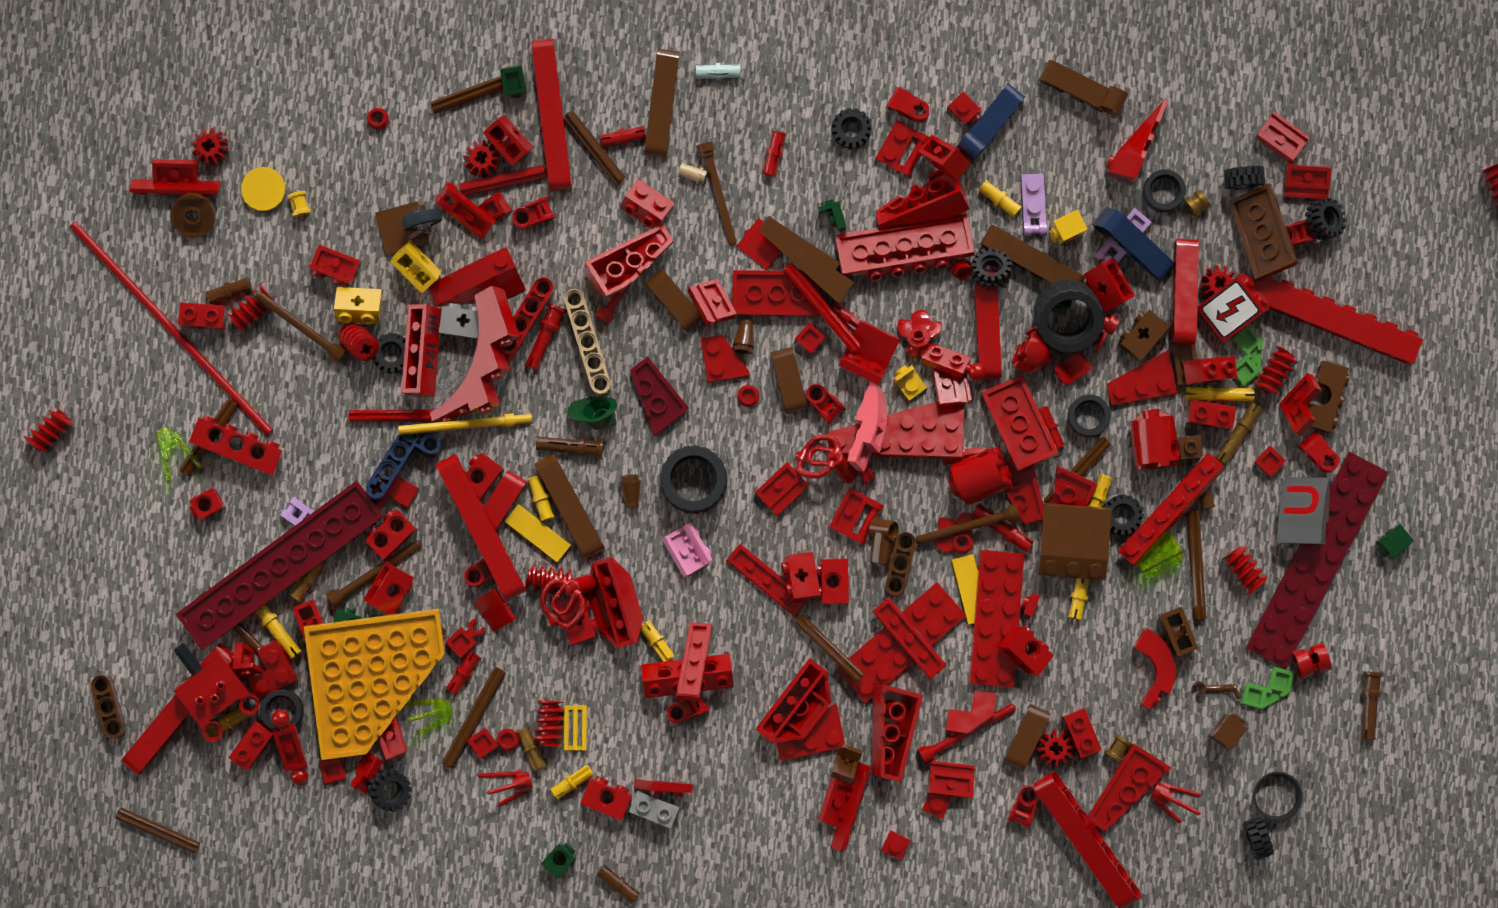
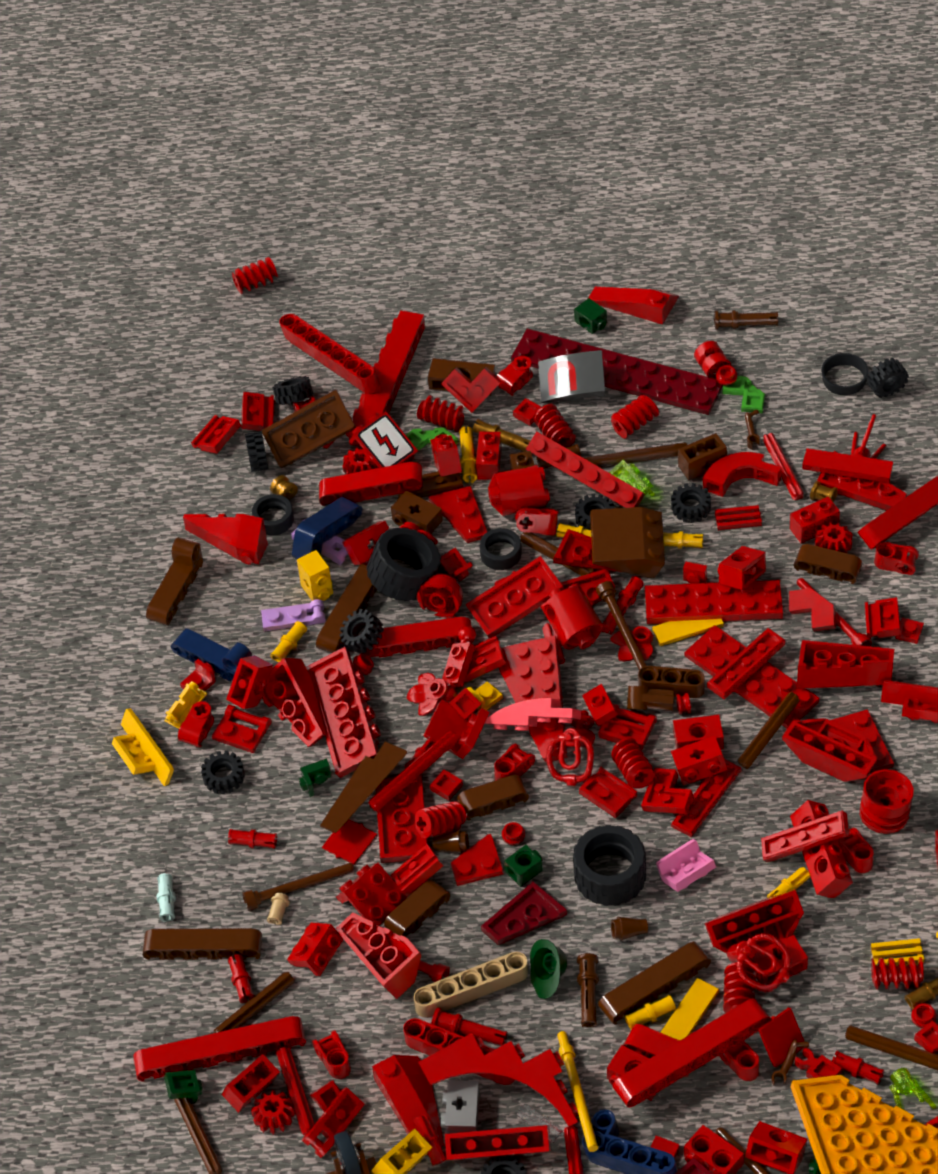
camera: 90 degrees left, 35 degrees down
(435, 292) = (426, 1130): none -> red axle
(481, 616) = (789, 1060): none -> reddish brown piece
(696, 258) = (372, 893): none -> red bracket
(703, 393) = (520, 873): none -> dark green brick
(734, 756) = (886, 801): none -> red wheel
(763, 328) = (440, 819): none -> red piece
(769, 536) = (662, 795): none -> red plate
(804, 513) = (632, 763): none -> red piece
(846, 763) = (884, 706): reddish brown bracket -> none
(874, 572) = (683, 703): none -> red bush
(881, 492) = (600, 705): none -> red plate
(886, 49) = (140, 750): none -> yellow bracket
(892, 362) = (465, 703): none -> red tile
(932, 94) = (181, 708): none -> yellow hinge
(1101, 677) = (735, 515): none -> red tile
(1115, 456) = (540, 520): none -> red piece
(1133, 603) = (691, 512): none -> black tyre
(1146, 777) = (847, 465): none -> red tile
(1162, 713) = (786, 471): none -> red axle
(1228, 730) = (791, 407): reddish brown brick -> none
(1240, 485) = (554, 426): none -> red piece
(1287, 672) = (726, 375): none -> red plate
(1377, 252) = (329, 353): none -> red beam
(1414, 596) = (642, 303): none -> red wedge

